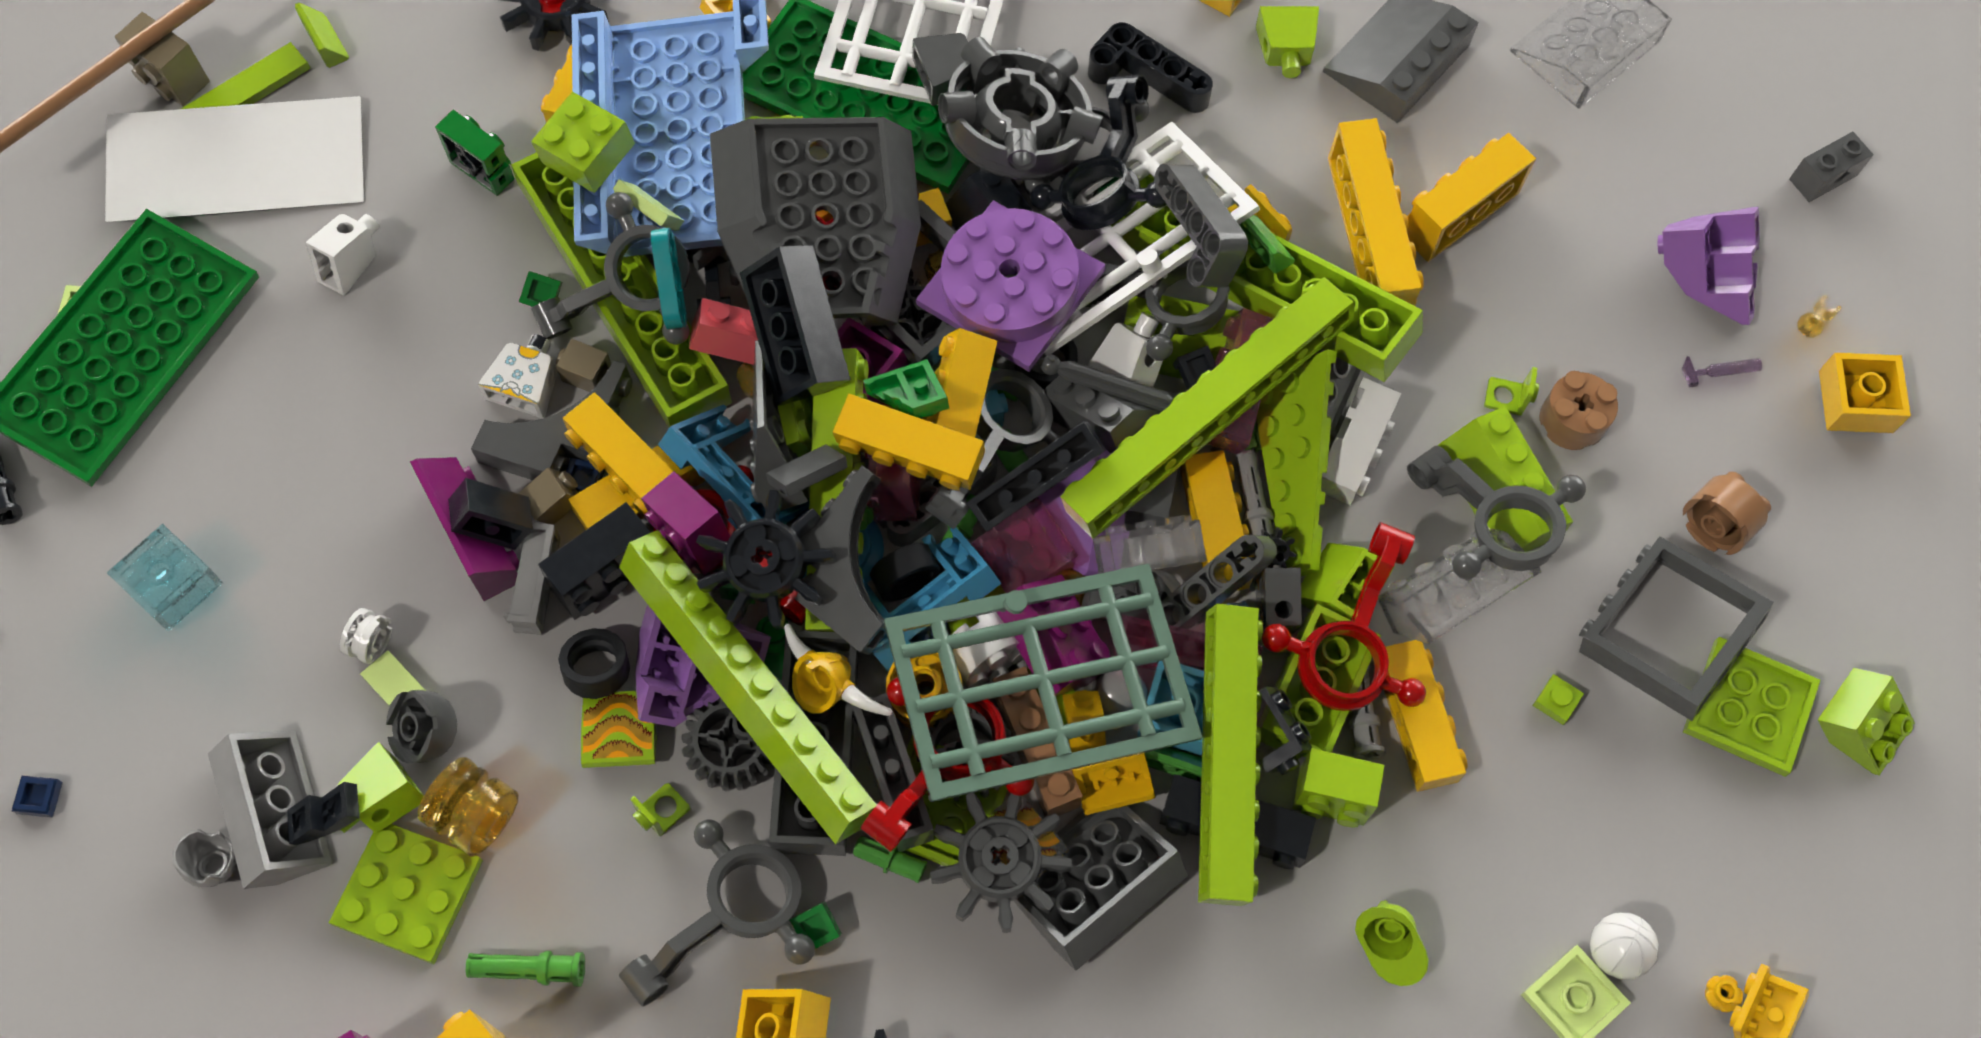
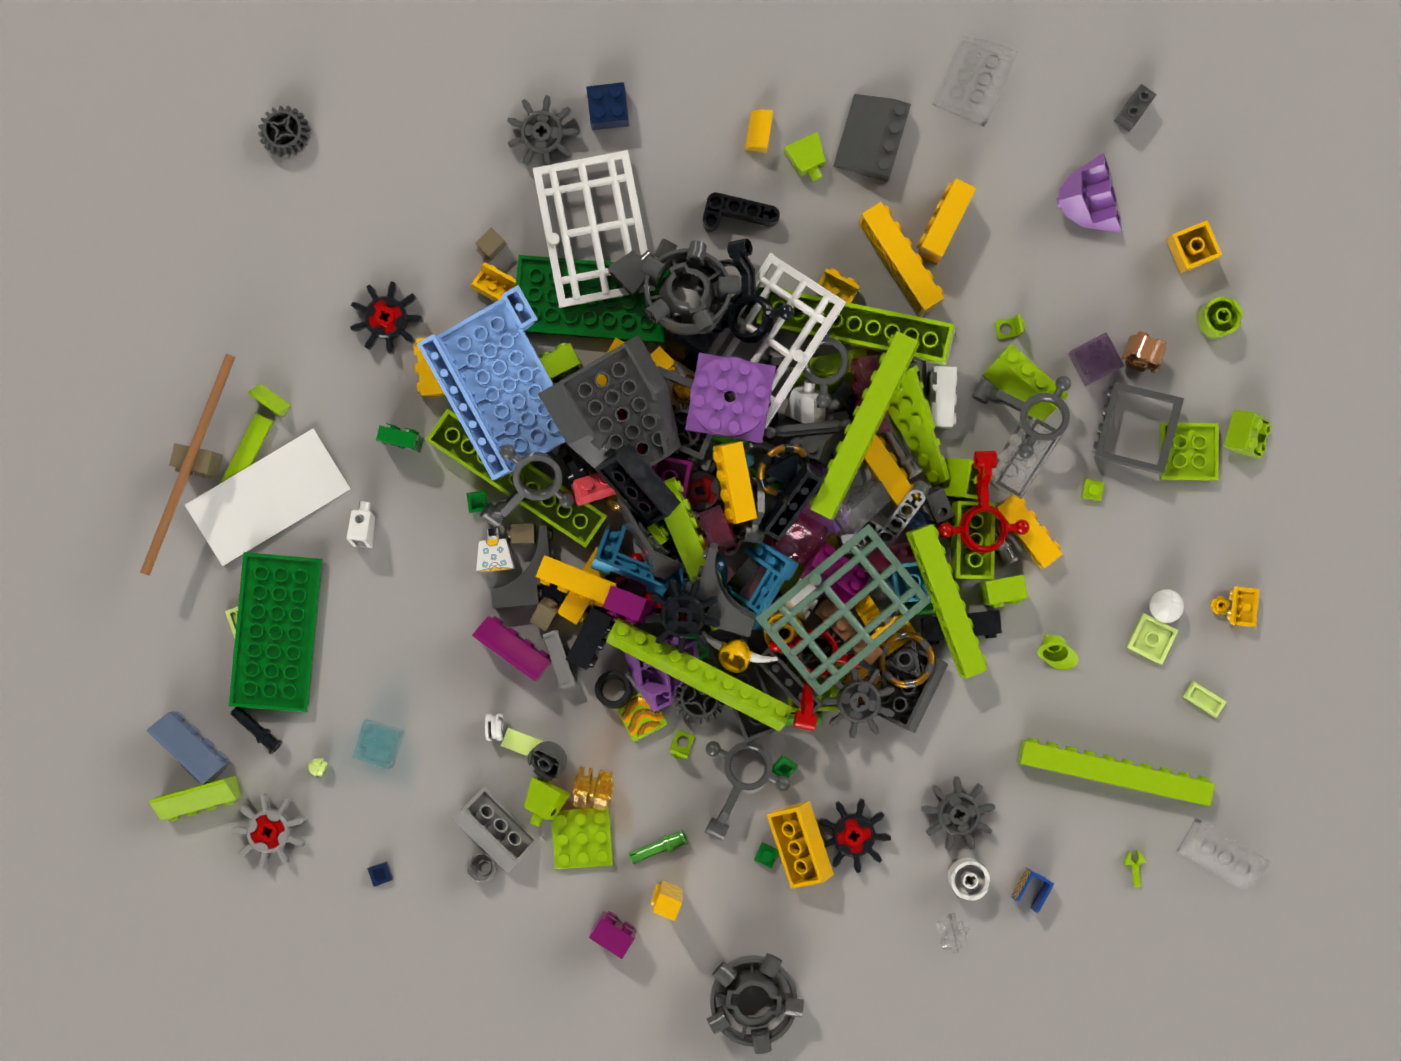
camera: 20 degrees left, 20 degrees up
(50, 576) = (318, 767): none -> yellowish green plate
(323, 815) = (527, 824): black slope -> none
(490, 514) = (525, 641): black brick -> none
(583, 142) = (469, 424): lime brick -> none
(649, 206) = (520, 441): yellowish green tile -> none
(668, 278) = (554, 480): teal beam -> none
(806, 470) = (680, 558): dark grey tile -> none
(908, 442) = (725, 521): yellow brick -> none
(909, 390) = (711, 491): green wing -> none
(1041, 421) = (782, 469): none -> piece
(1116, 828) = (907, 659): none -> dark grey piece
(1208, 223) = (820, 324): dark grey beam -> none
(1266, 245) = (856, 314): bright green slope -> none
(1283, 547) = (925, 476): black gear -> none
(1285, 757) = (975, 577): black bracket -> none
(1579, 410) = (1056, 316): medium nougat brick -> none
(1639, 491) = (1095, 359): none -> clear purple container
(1719, 369) = (1113, 262): clear purple piece -> none
(1812, 323) = (1154, 211): clear yellow arm -> none
(1875, 514) = (1227, 309): none -> lime brick

